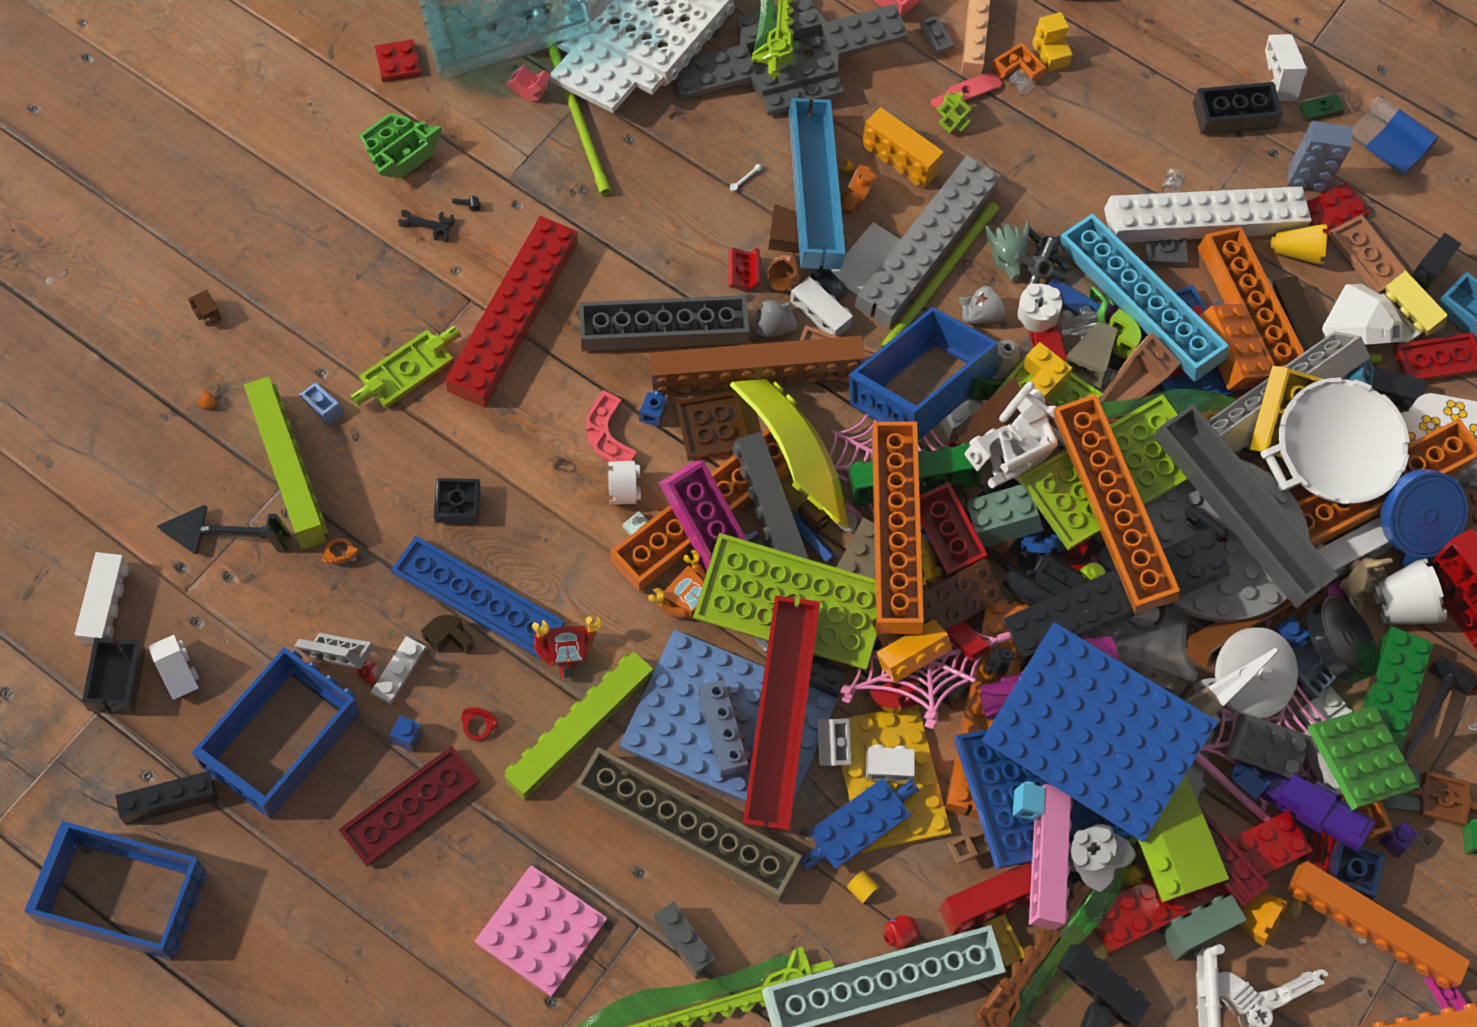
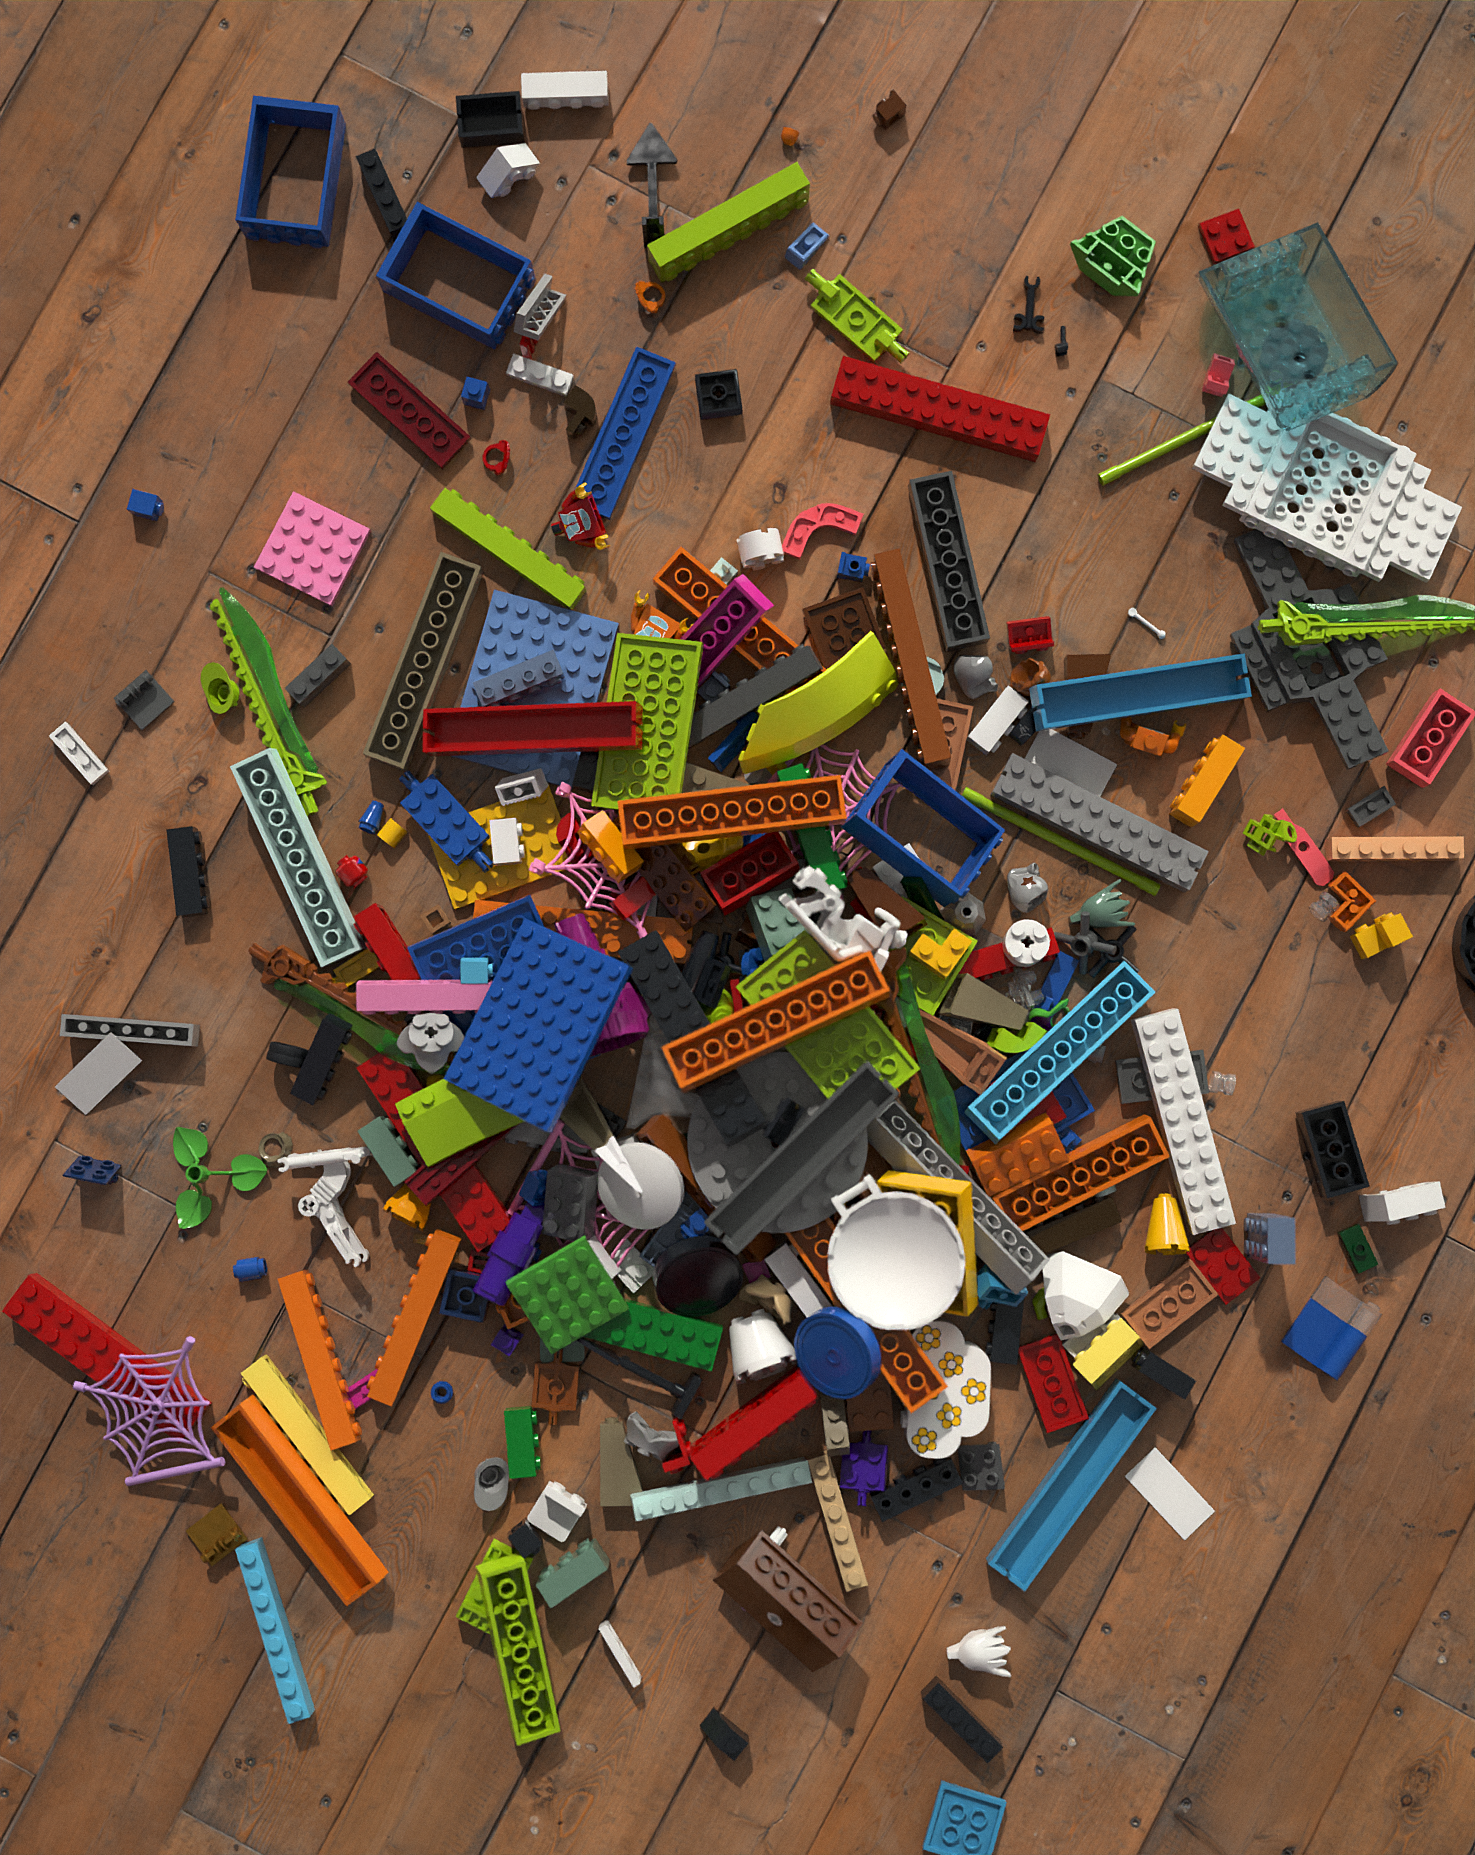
camera: 90 degrees right, 20 degrees up
(845, 904) = (371, 818): none -> blue cone
(998, 661) = (612, 929): black hinge -> none
(1456, 912) = (437, 1397): none -> blue plate

